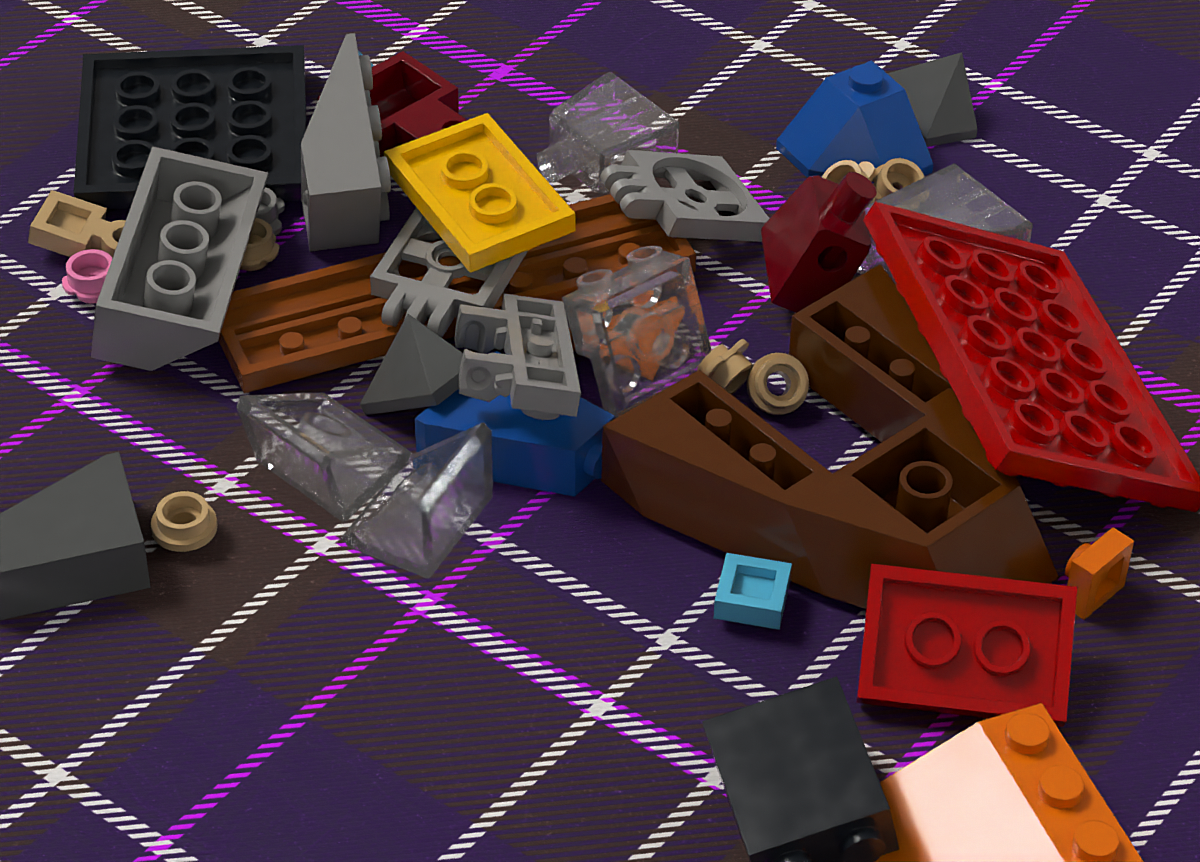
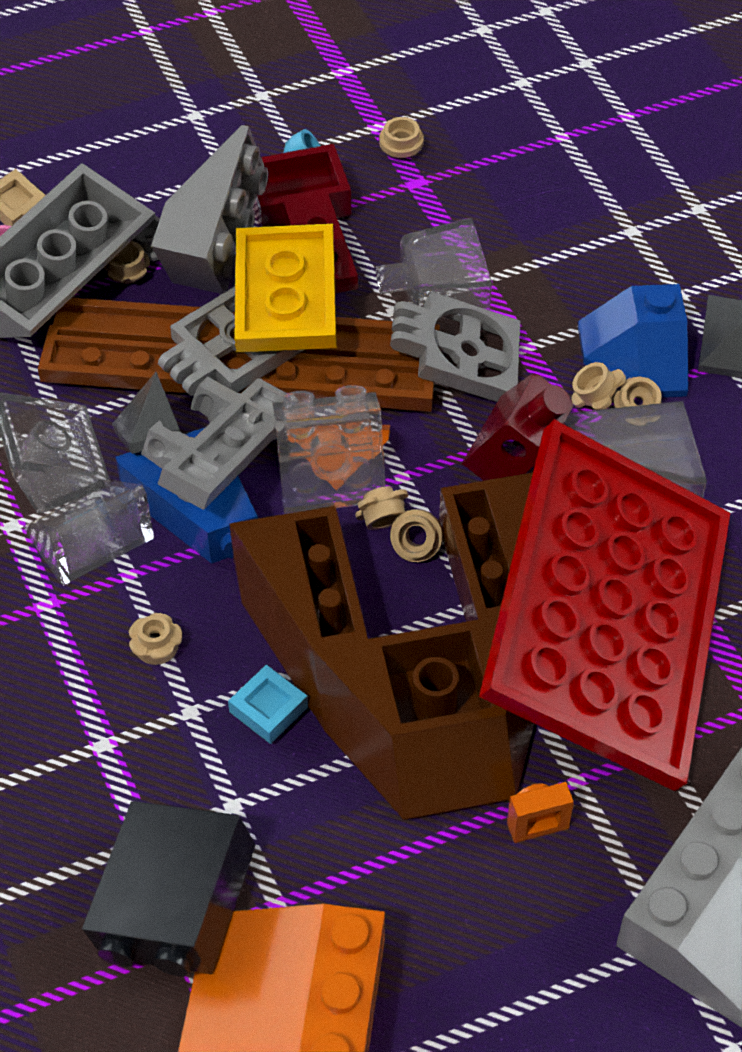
camera: 30 degrees right, 10 degrees up
(198, 102) = (149, 135): black plate -> none
(457, 30) = (401, 137): none -> tan plate
(580, 583) = (158, 649): none -> tan plate
(966, 643) = (382, 829): red plate -> none

